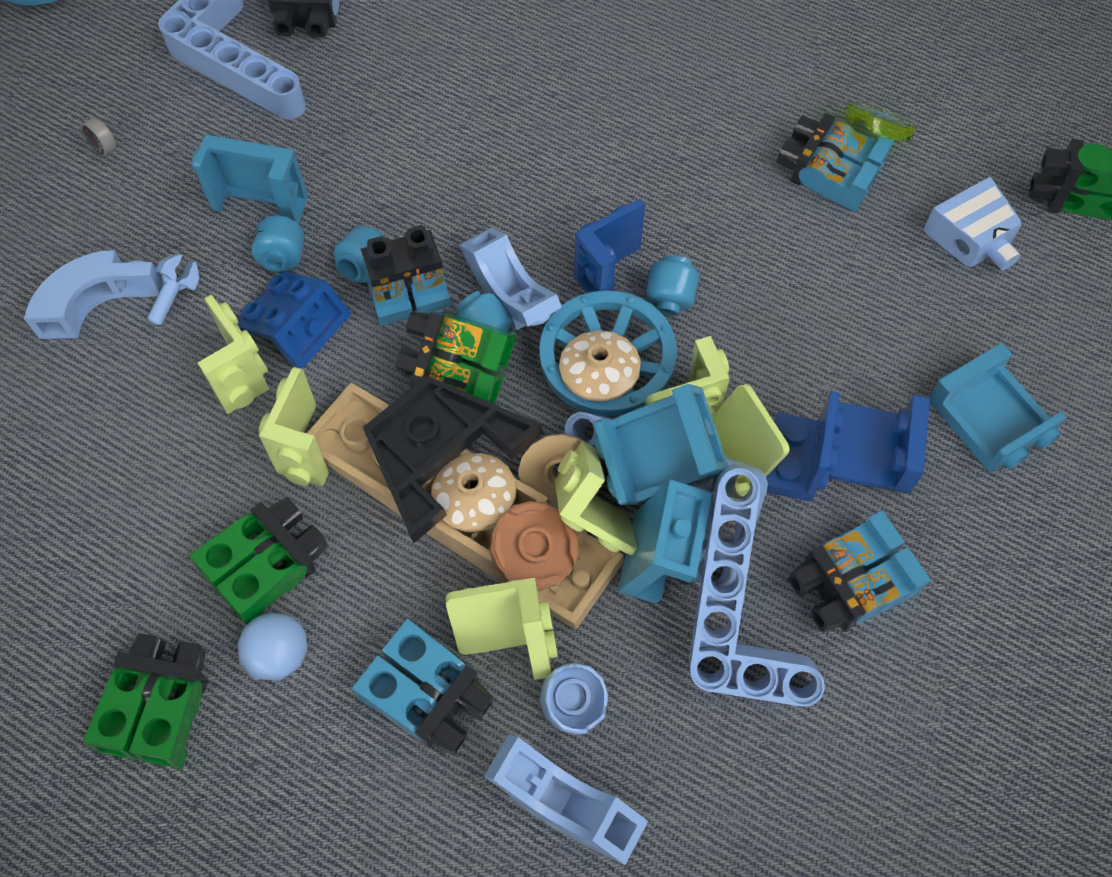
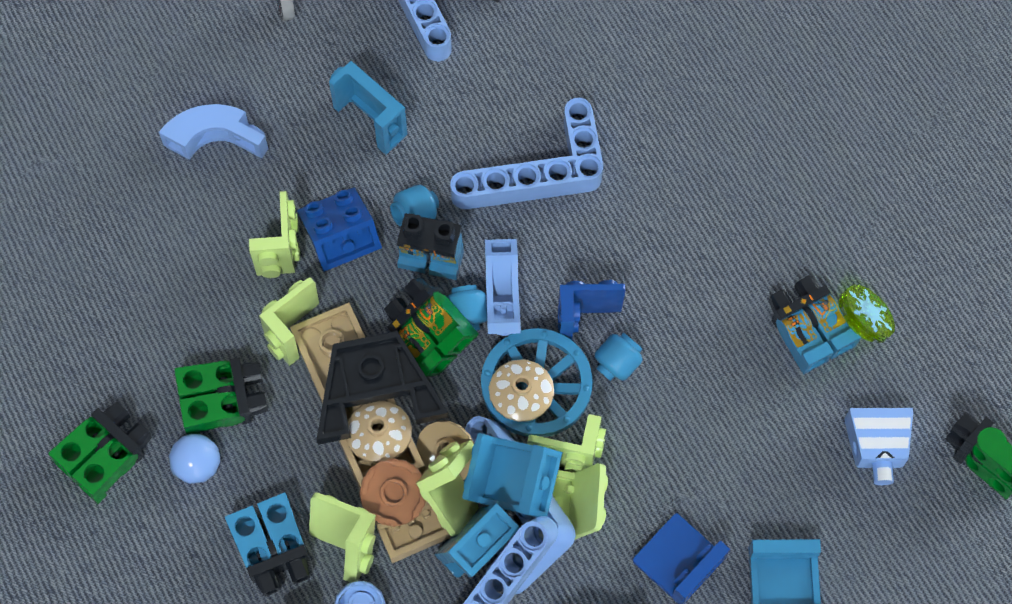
camera: 30 degrees right, 5 degrees up
(172, 284) = (271, 157): light blue bar -> none
(278, 241) = (361, 165): dark azure head -> none
(504, 144) = (540, 170): none -> light blue beam
(810, 452) = (622, 533): blue bracket -> none

